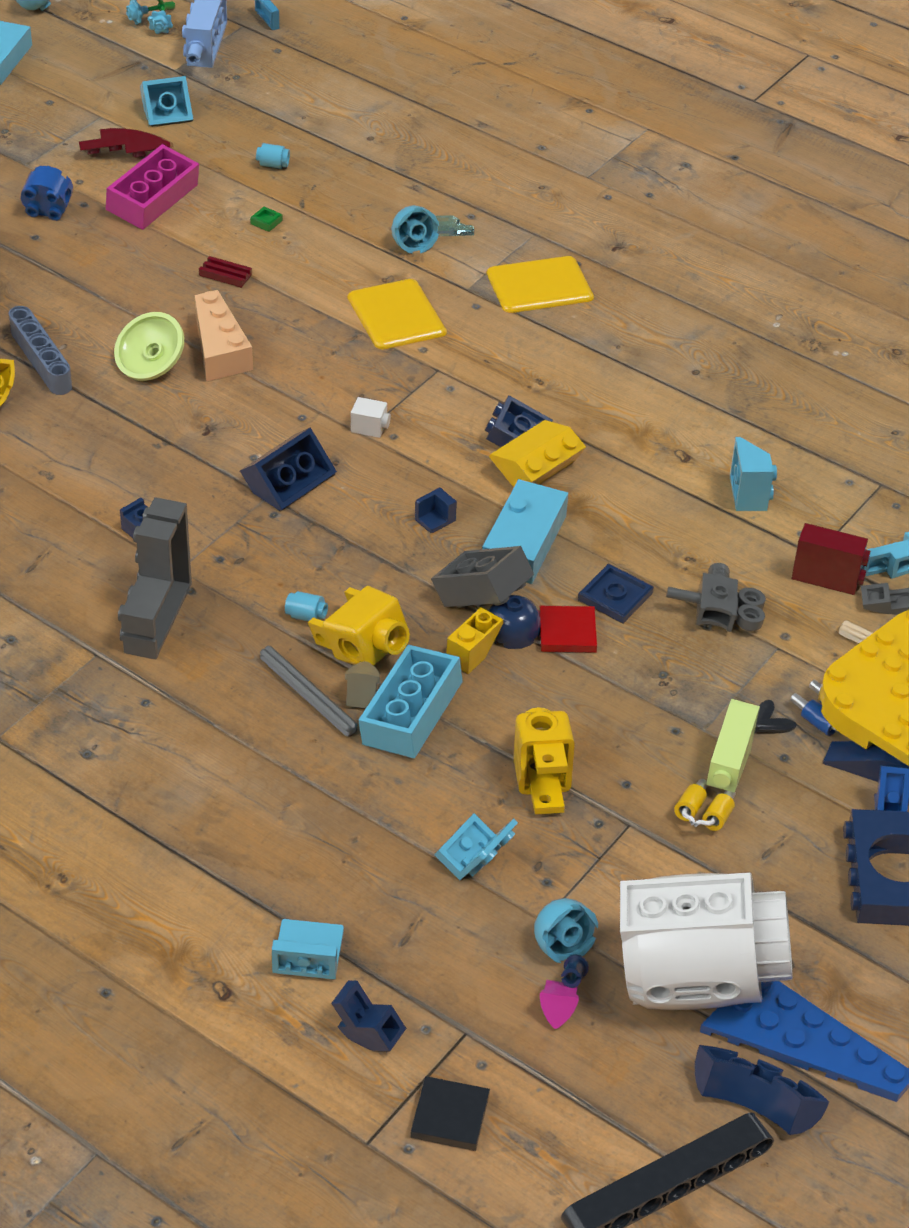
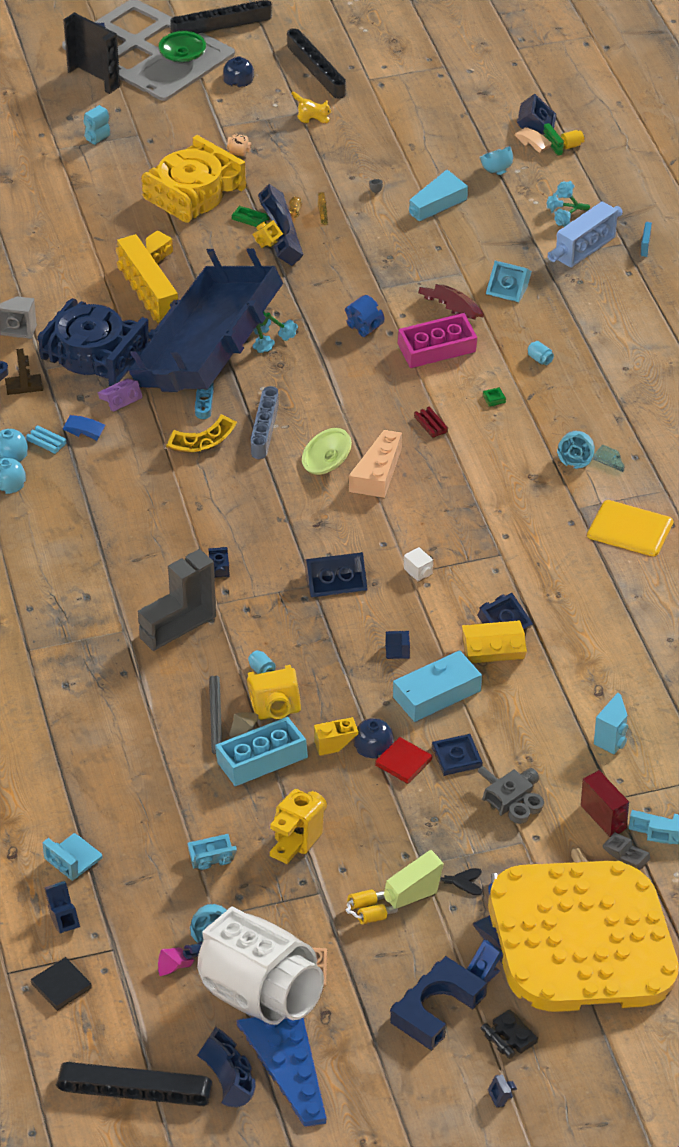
camera: 40 degrees right, 0 degrees up
(396, 314) = (513, 503): yellow piece -> none
(483, 577) = (371, 699): dark grey brick -> none

